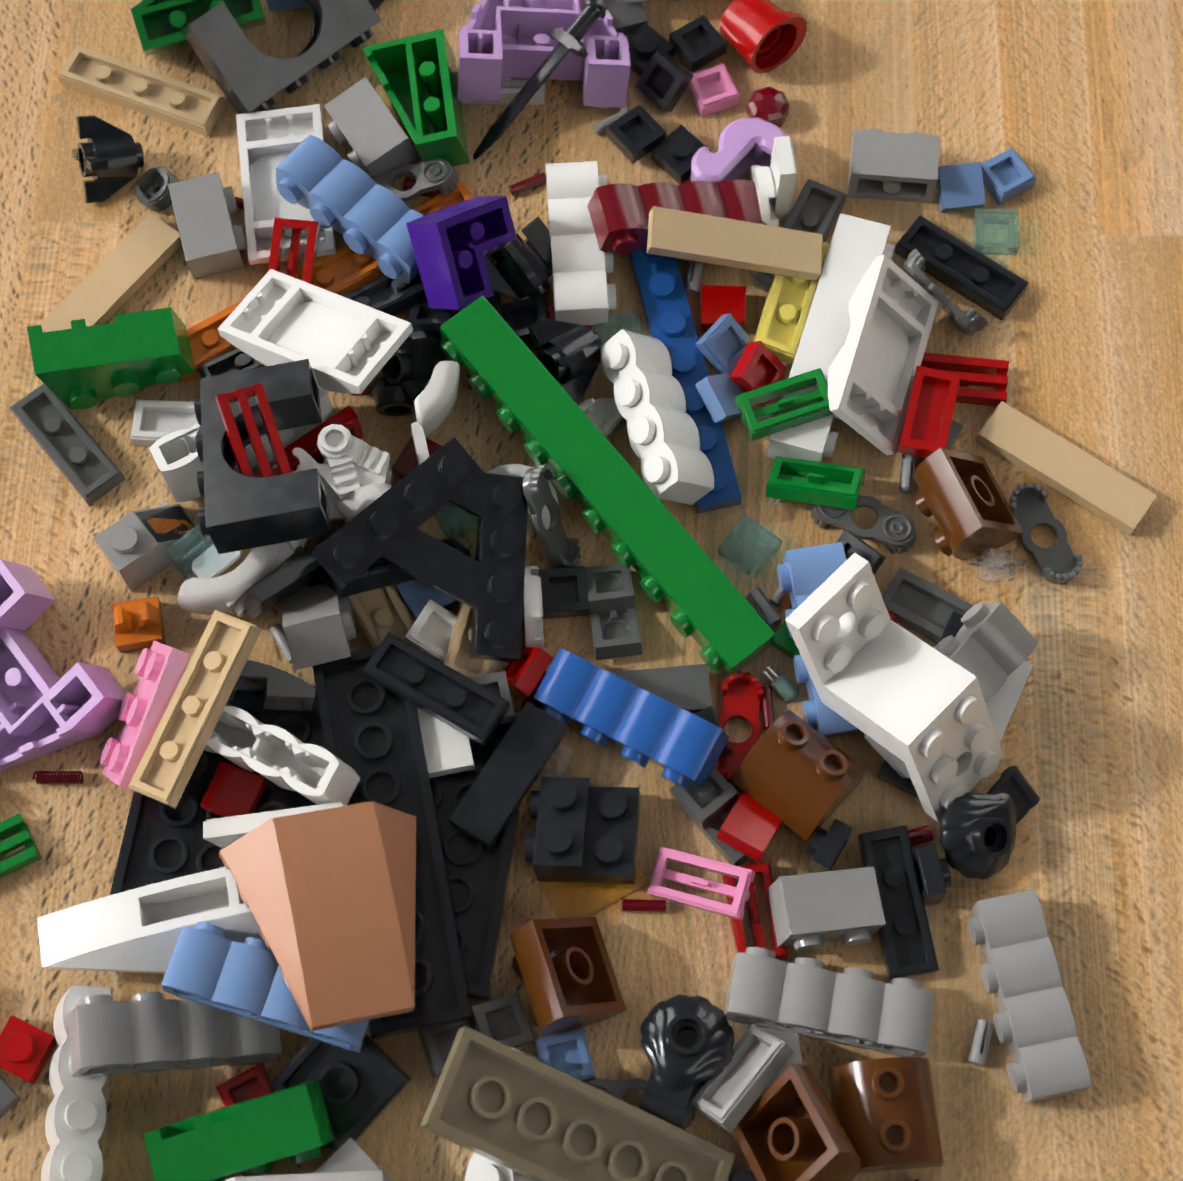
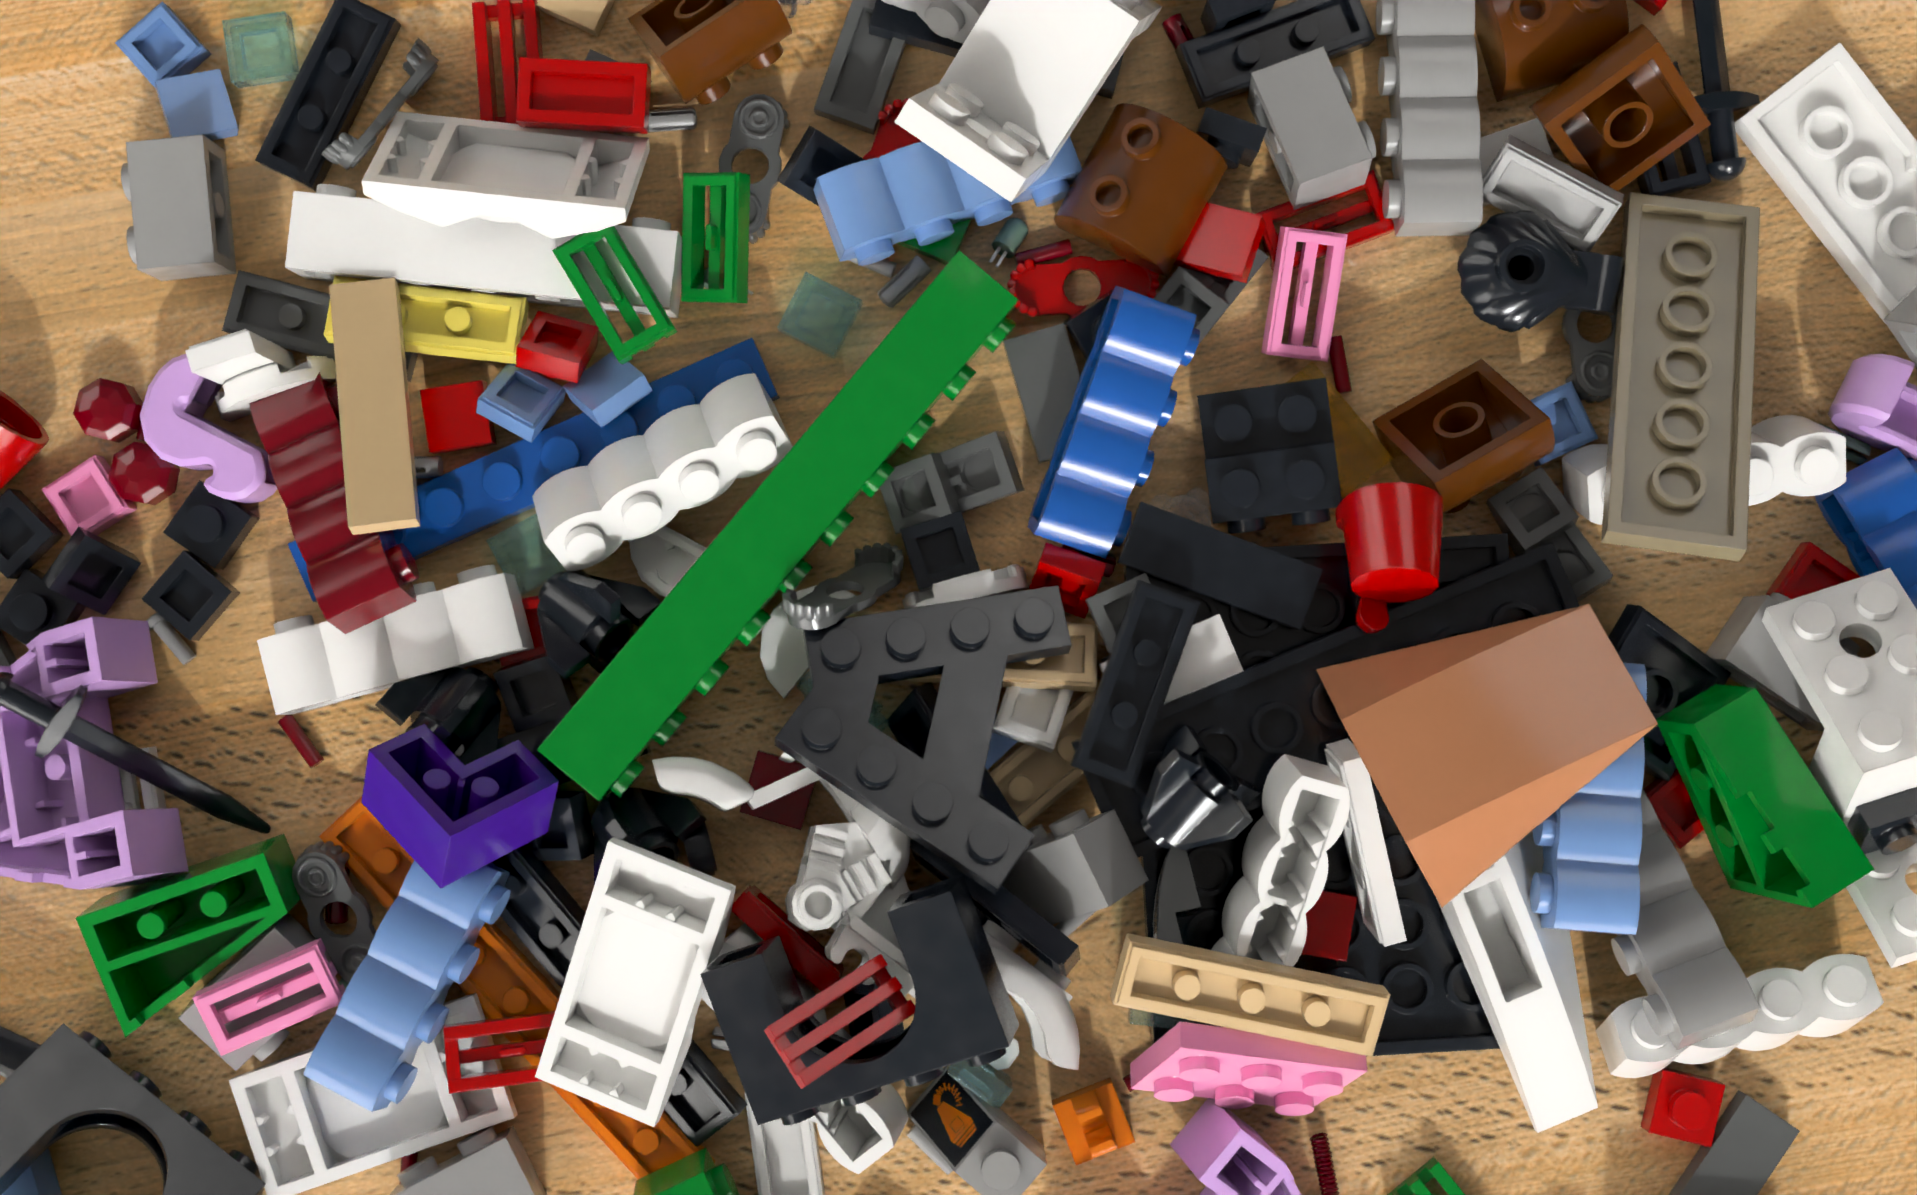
camera: 105 degrees left, 20 degrees up
(346, 704) = (1194, 797): none -> black brick
(371, 158) = (322, 972): none -> bright pink tile
(491, 884) = (1391, 546): none -> red hat
(717, 117) = (142, 475): none -> dark red tile

